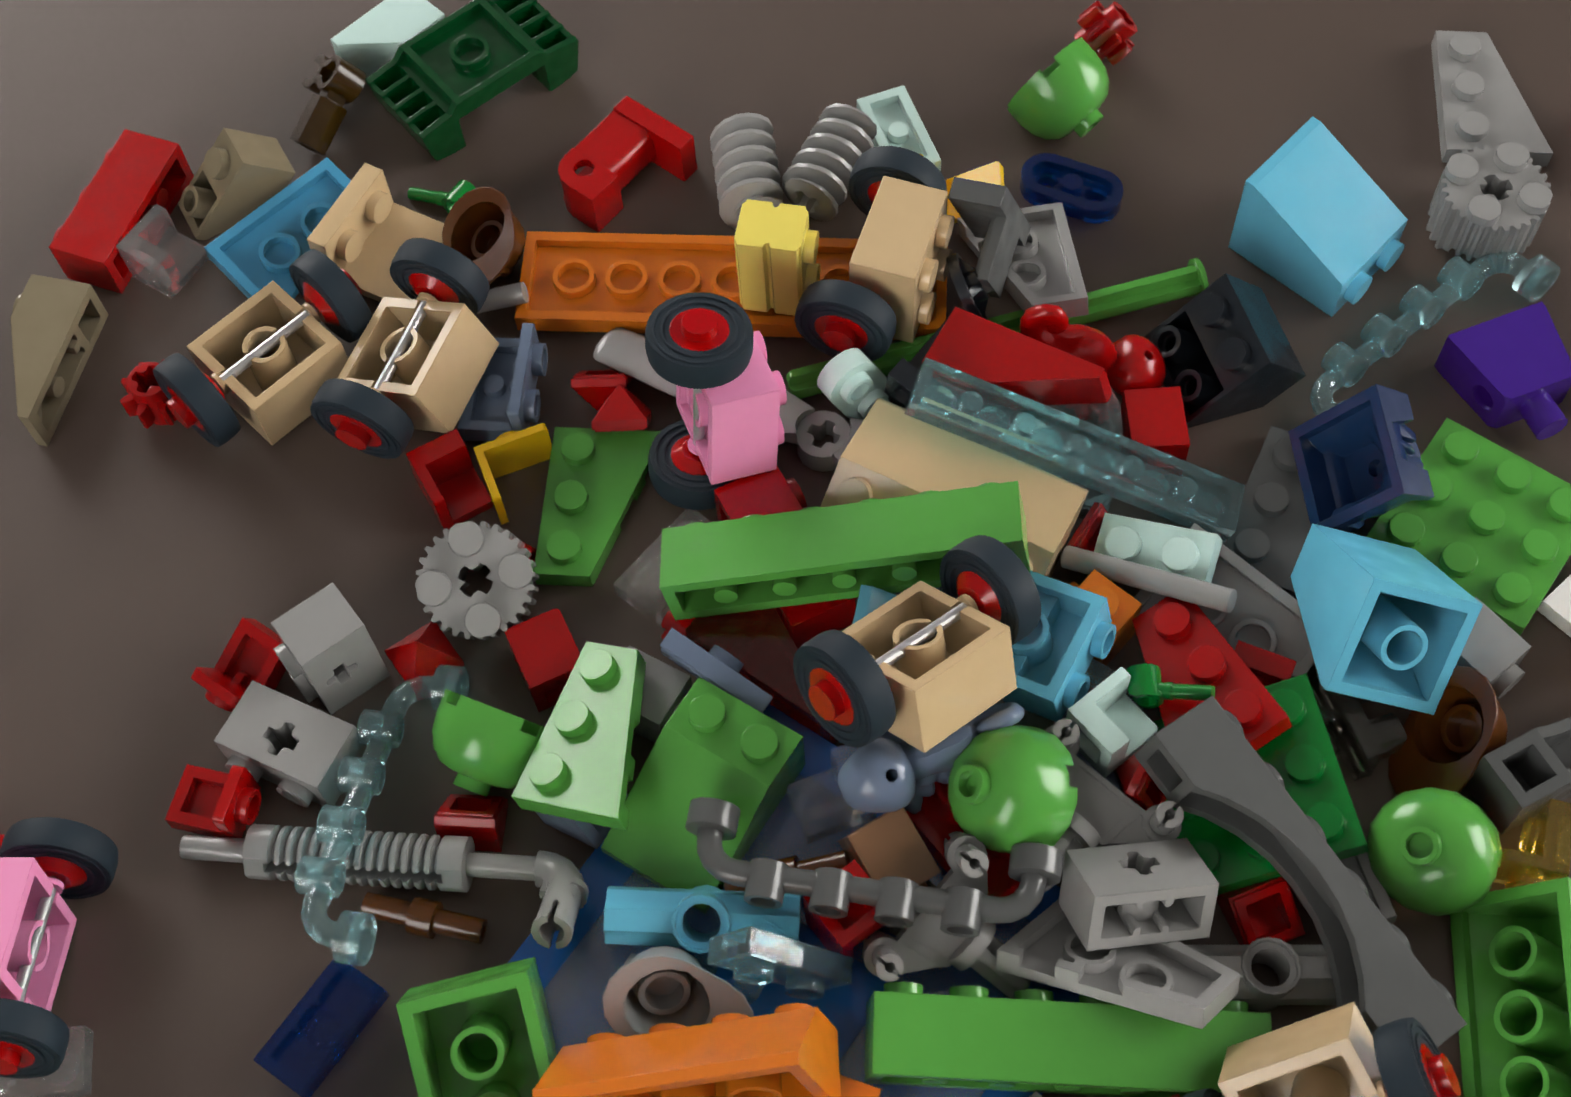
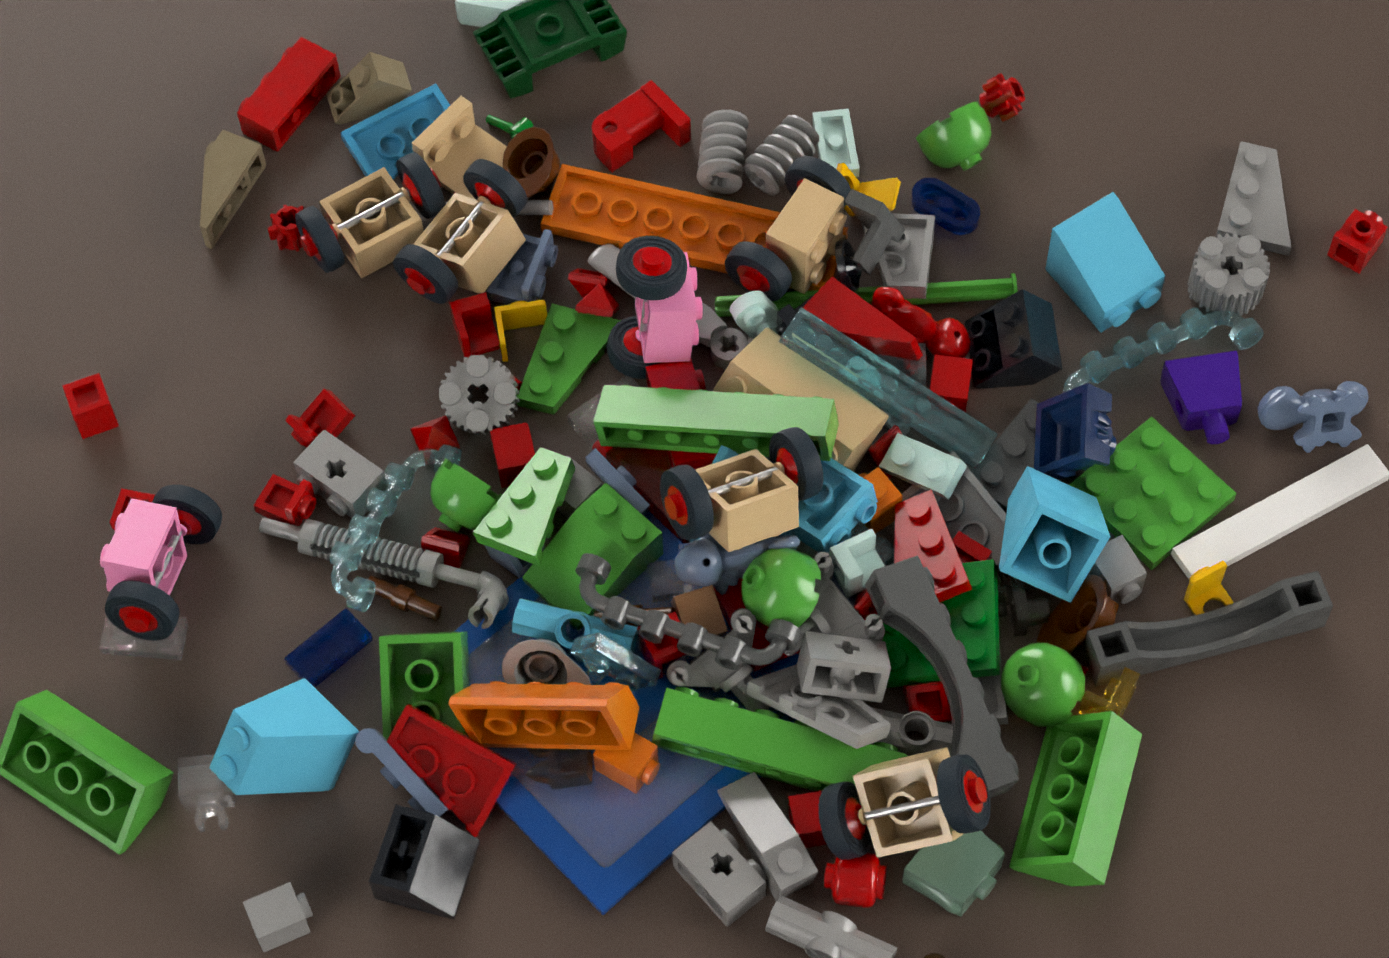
camera: 10 degrees right, 0 degrees up
(160, 253) = (309, 130): clear panel -> none
(328, 650) = (376, 420): light grey brick -> none
(334, 85) = (452, 31): dark brown bar -> none
(774, 256) = (721, 217): light yellow brick -> none
(1150, 579) = (911, 480): light grey bar -> none
(1150, 692) = (889, 547): green hand -> none

